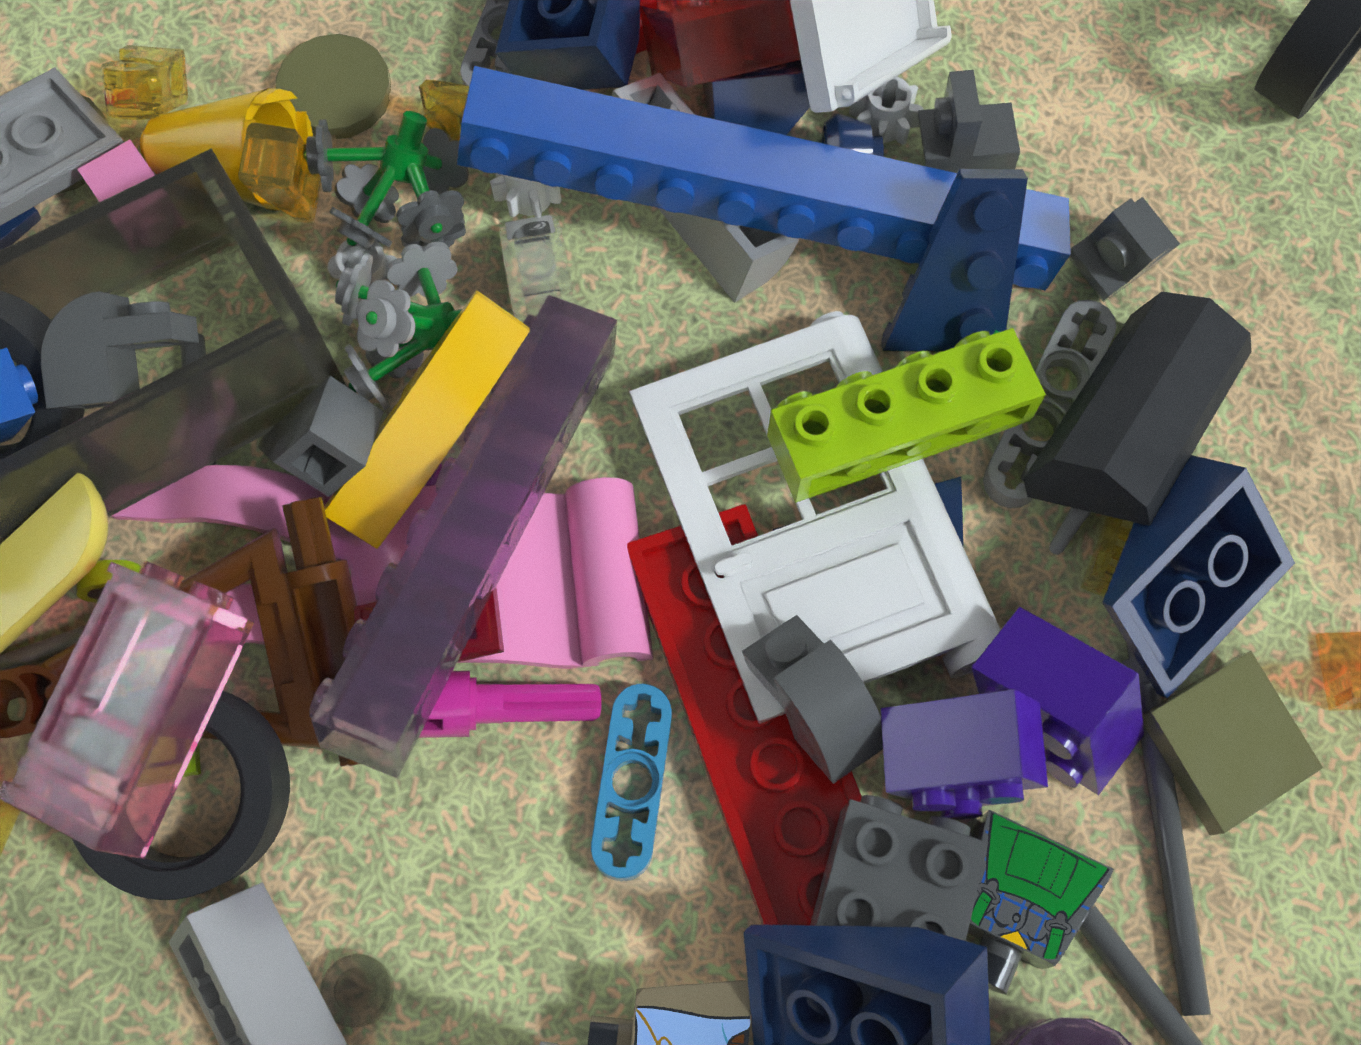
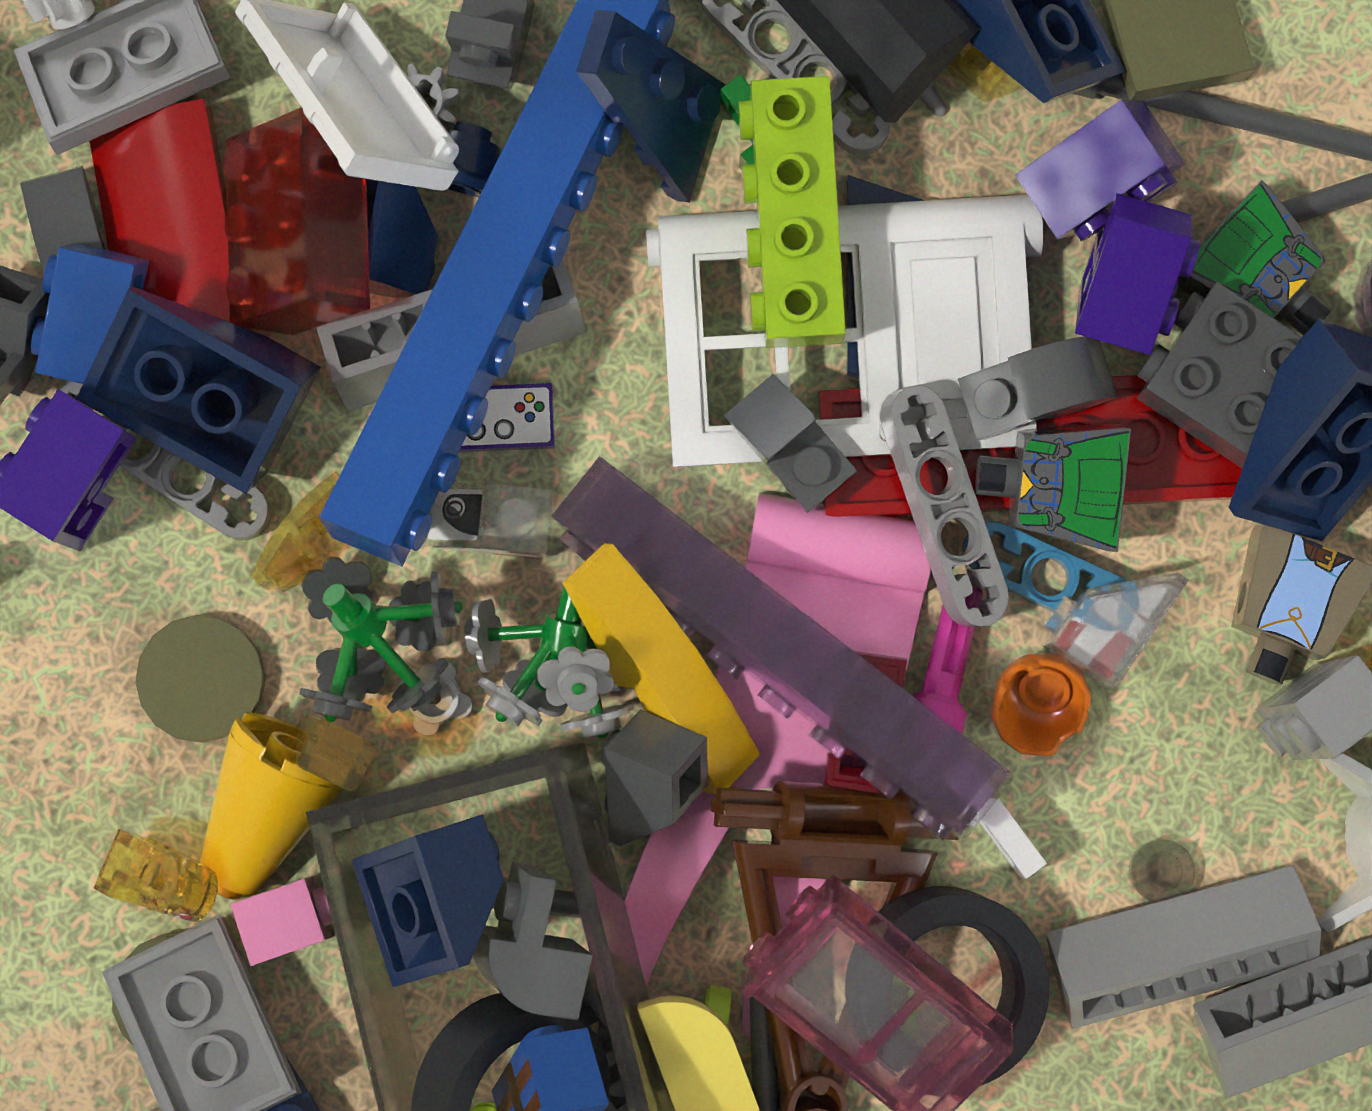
camera: 70 degrees left, 15 degrees up
(151, 251) = (431, 897): none -> dark blue slope
(359, 805) = (1012, 841): none -> white tile
(505, 782) = (1061, 707): none -> orange hair
(594, 845) = (1111, 624): none -> clear slope
(630, 248) = (515, 419): none -> white tile
(671, 650) = (954, 502): none -> light grey beam
(682, 483) = (790, 442): none -> dark grey slope
(724, 750) = (1063, 482): none -> torso

